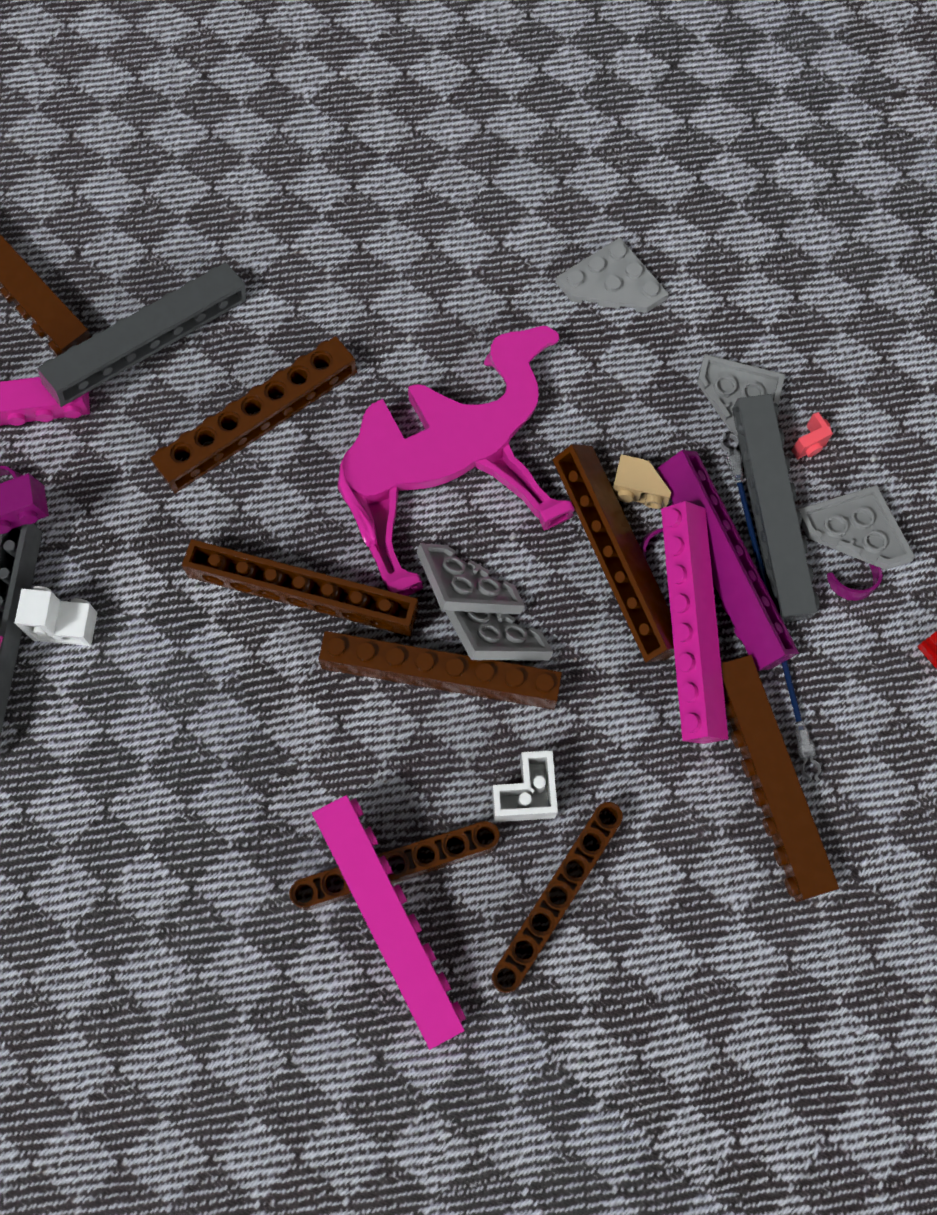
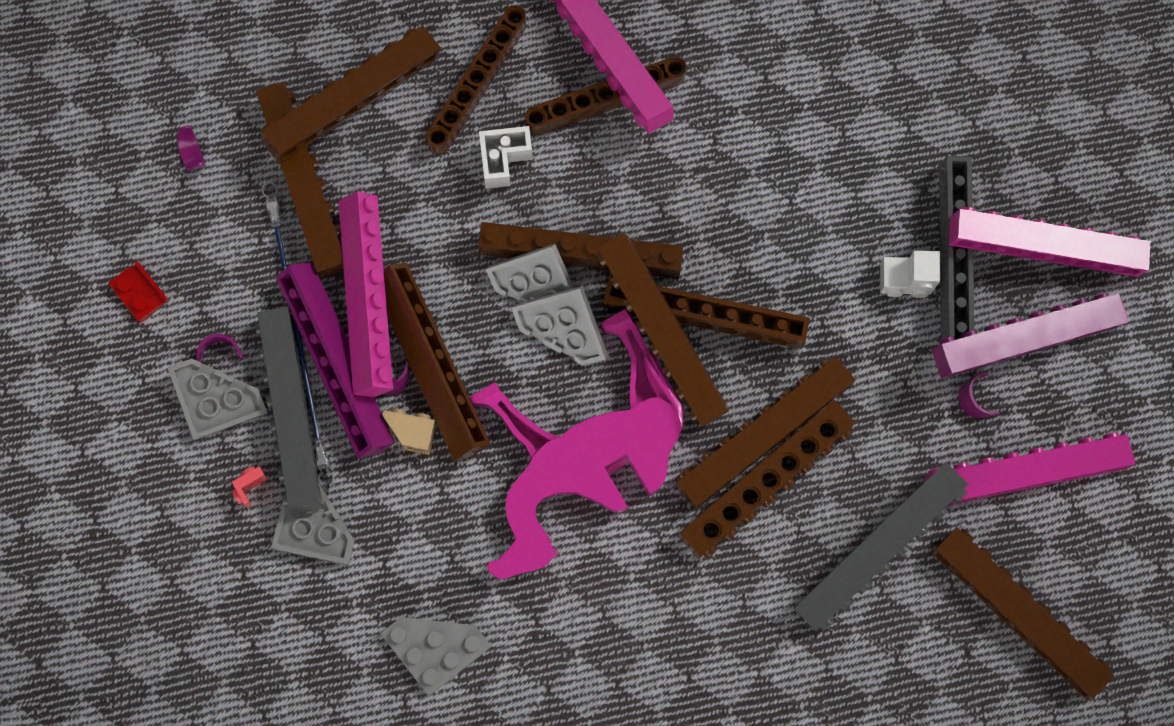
camera: 175 degrees right, 5 degrees up
(249, 461) = (764, 433): none -> reddish brown brick
(354, 562) = (663, 329): none -> reddish brown brick
(718, 875) = (350, 94): none -> reddish brown brick
(908, 819) = (189, 149): none -> magenta helmet

